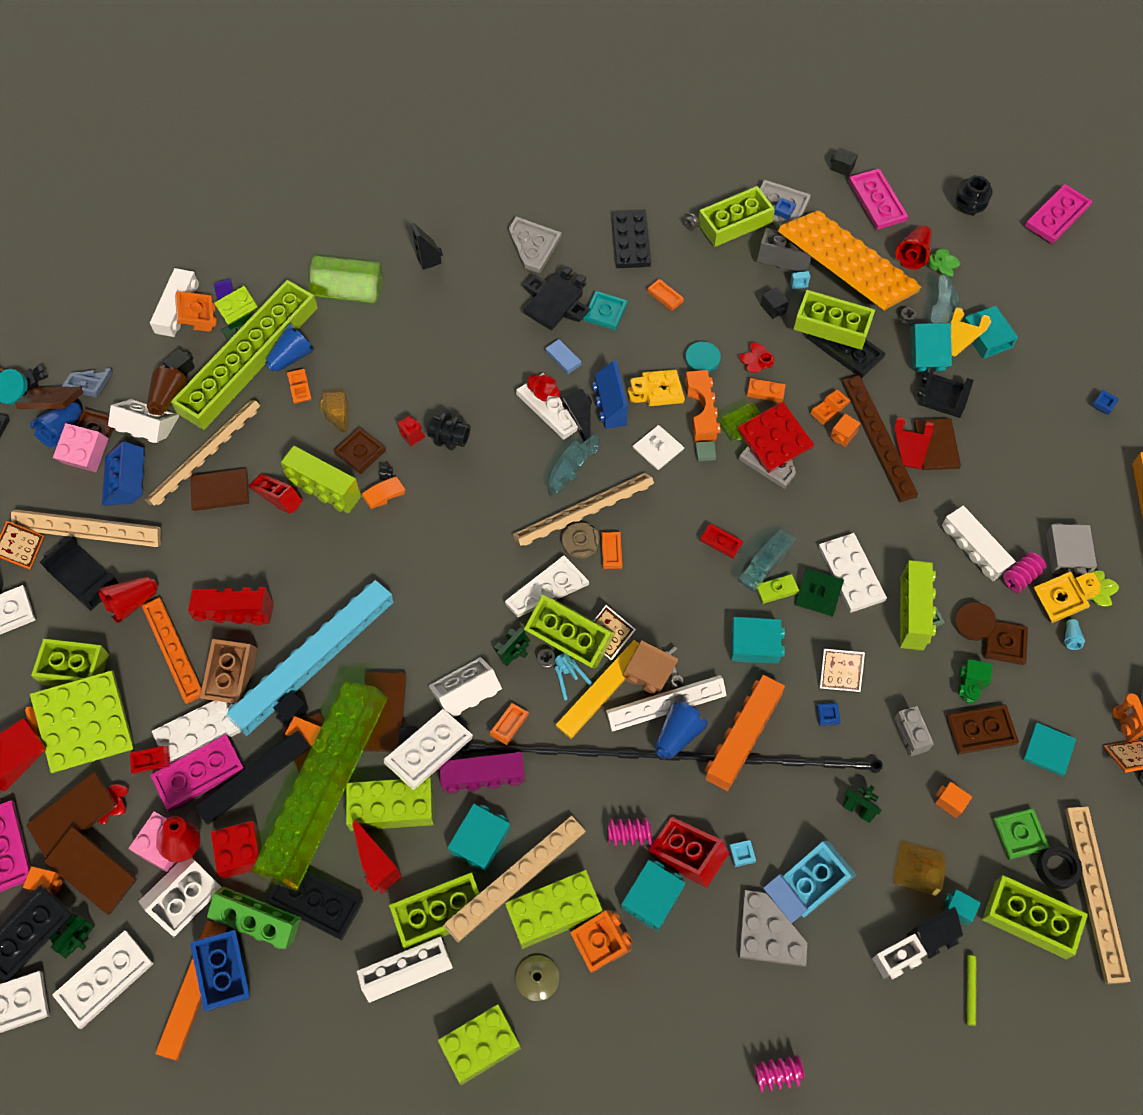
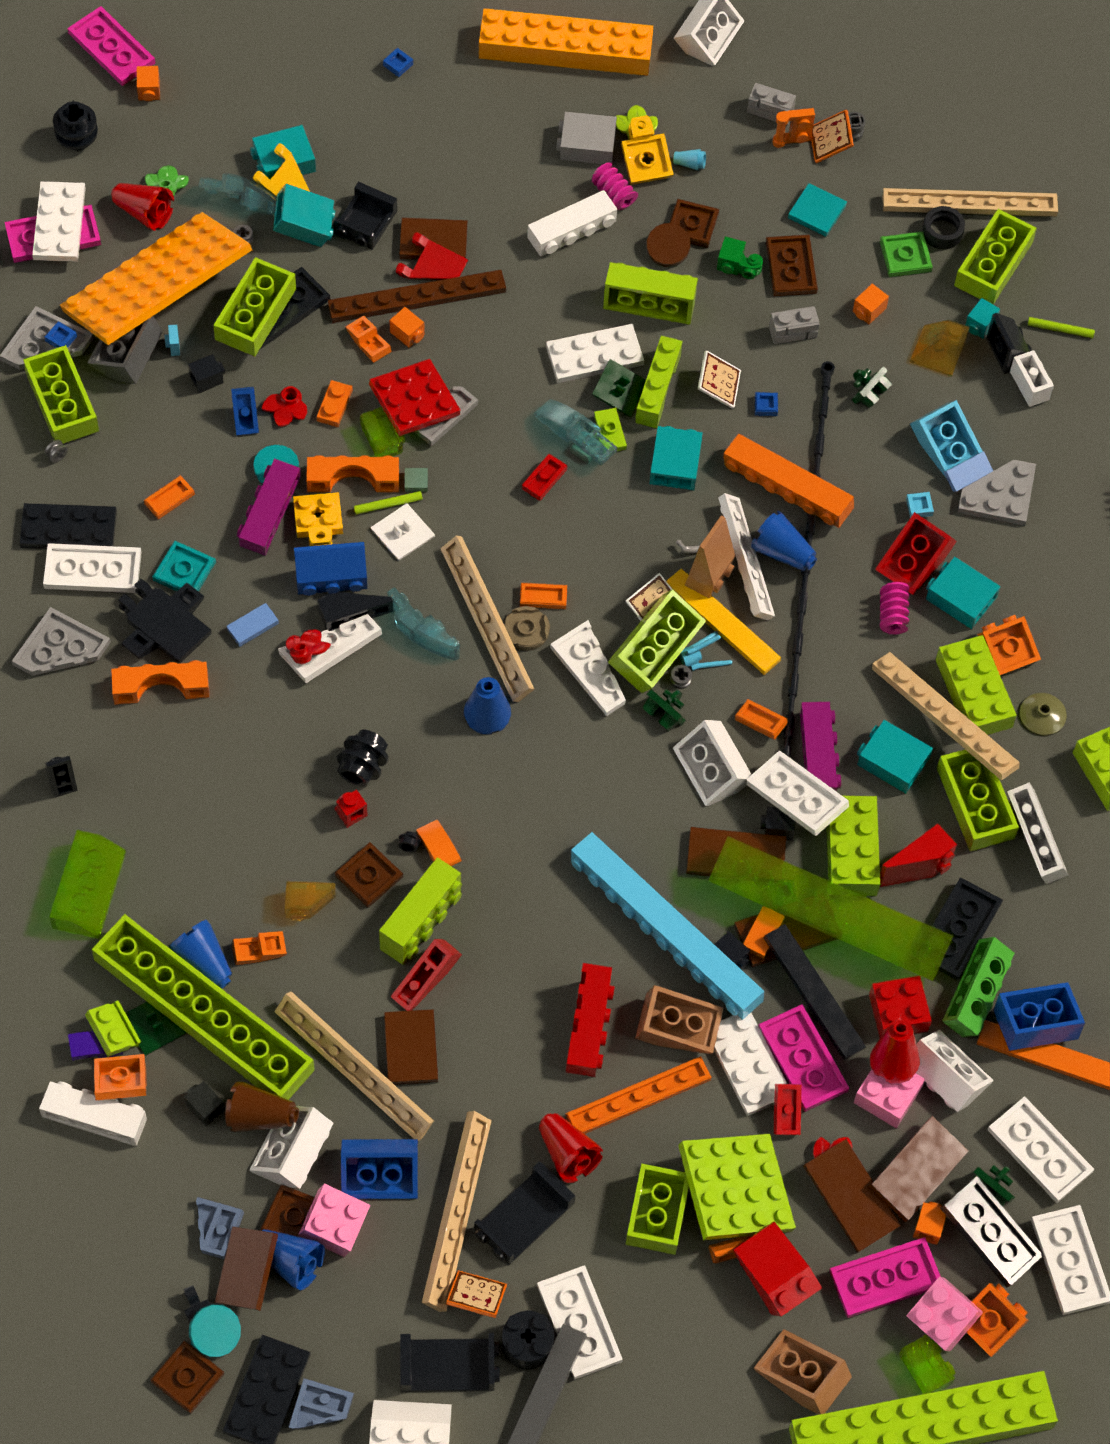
camera: 90 degrees left, 0 degrees up
(502, 514) = (487, 707): none -> blue cone
(510, 319) = (132, 682): none -> orange arch
(598, 254) = (92, 568): none -> white plate
(661, 352) = (269, 506): none -> magenta brick
(684, 439) = (389, 502): none -> lime bar
(745, 329) = (245, 410): none -> blue slope
(850, 623) = (657, 382): none -> lime arch
(886, 197) = (59, 221): none -> white plate
(1030, 239) = (148, 83): none -> orange brick

